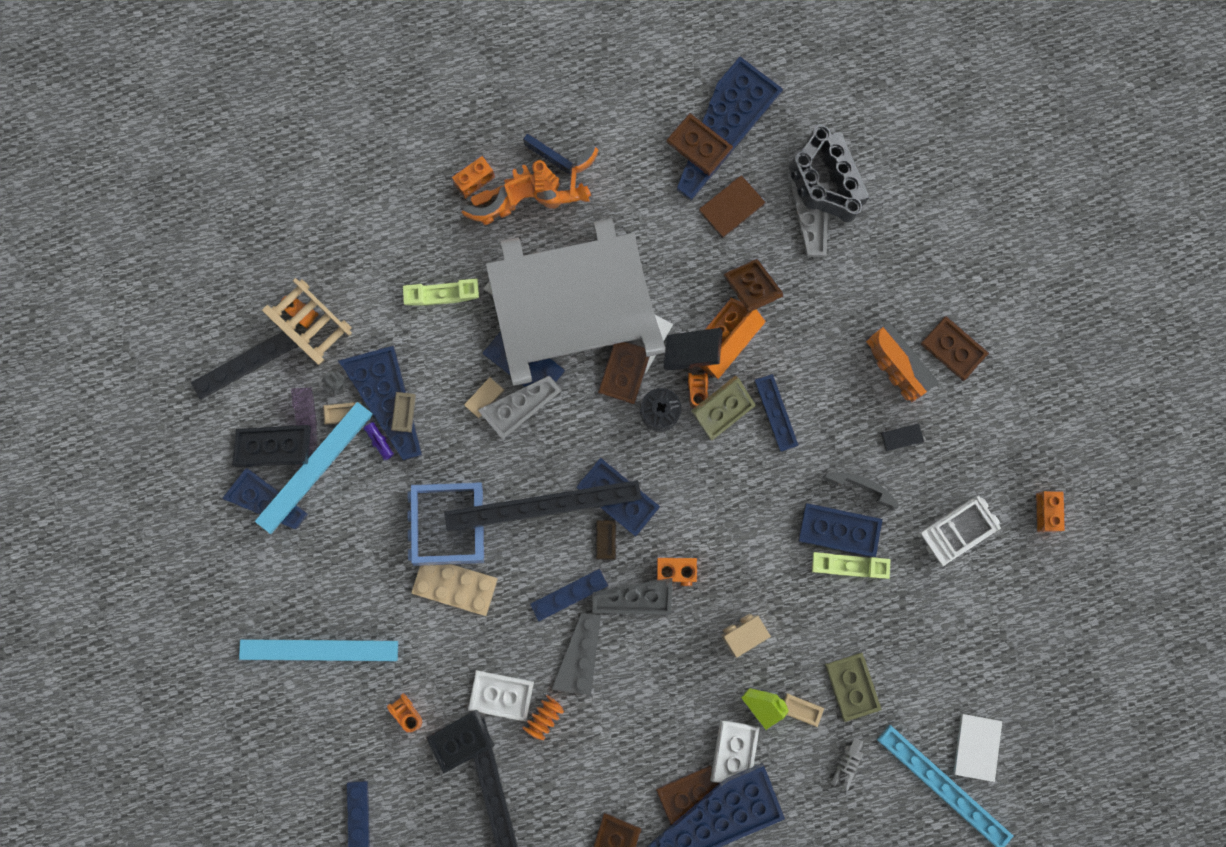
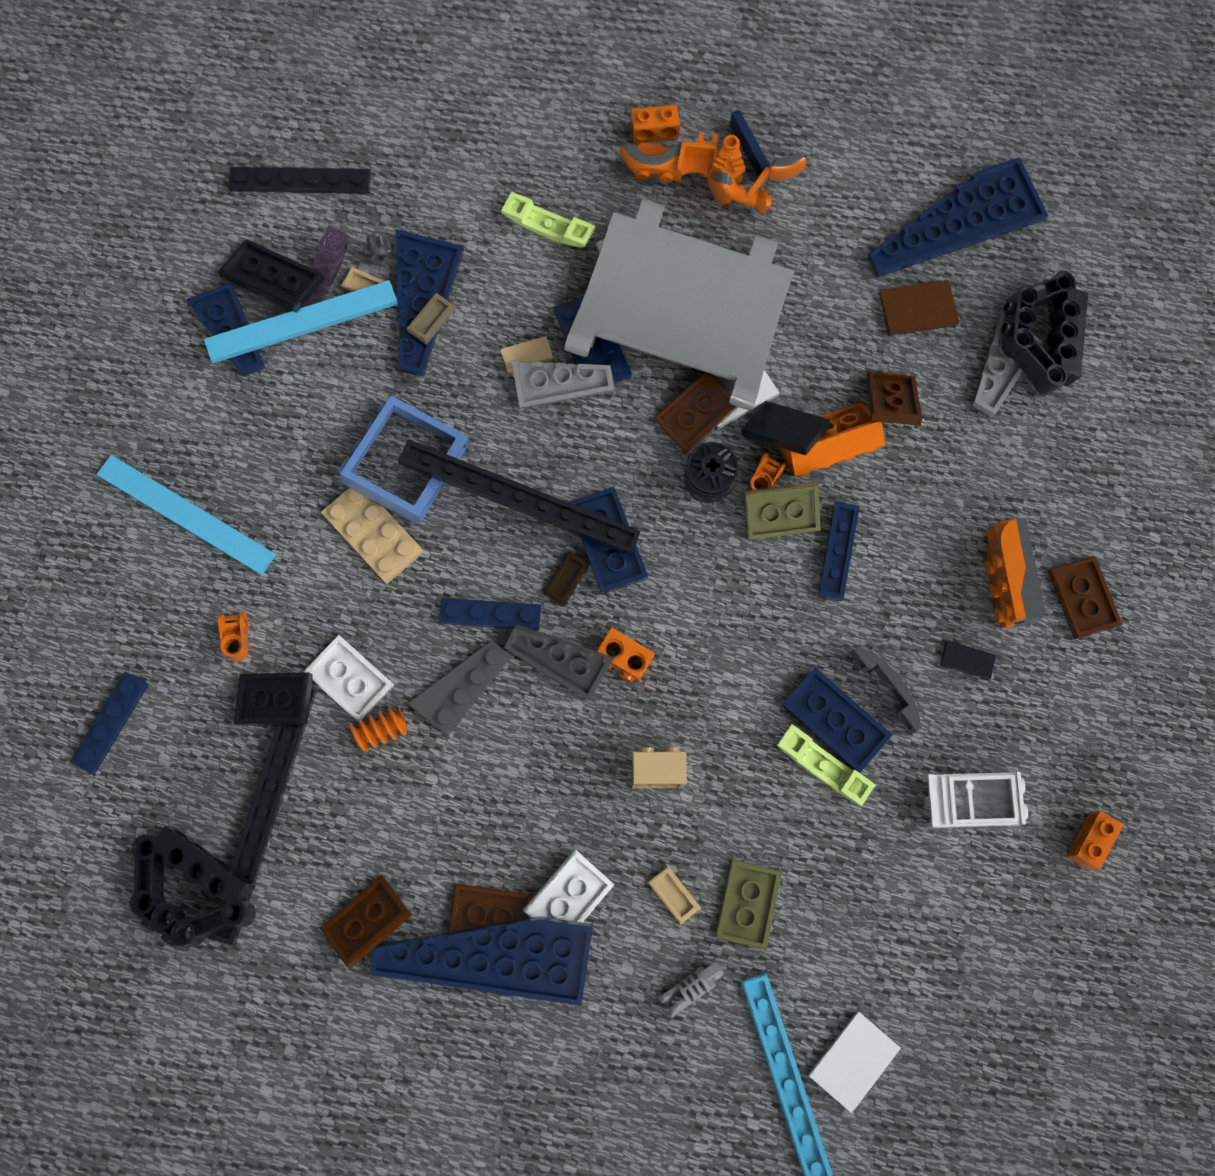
camera: 25 degrees right, 5 degrees down
(289, 326) = (372, 186): tan fence -> none
(298, 305) = (387, 158): orange piece -> none
(378, 441) = (386, 335): dark purple pin -> none
(699, 144) = (920, 222): reddish brown tile -> none
(765, 706) = (634, 864): lime slope -> none

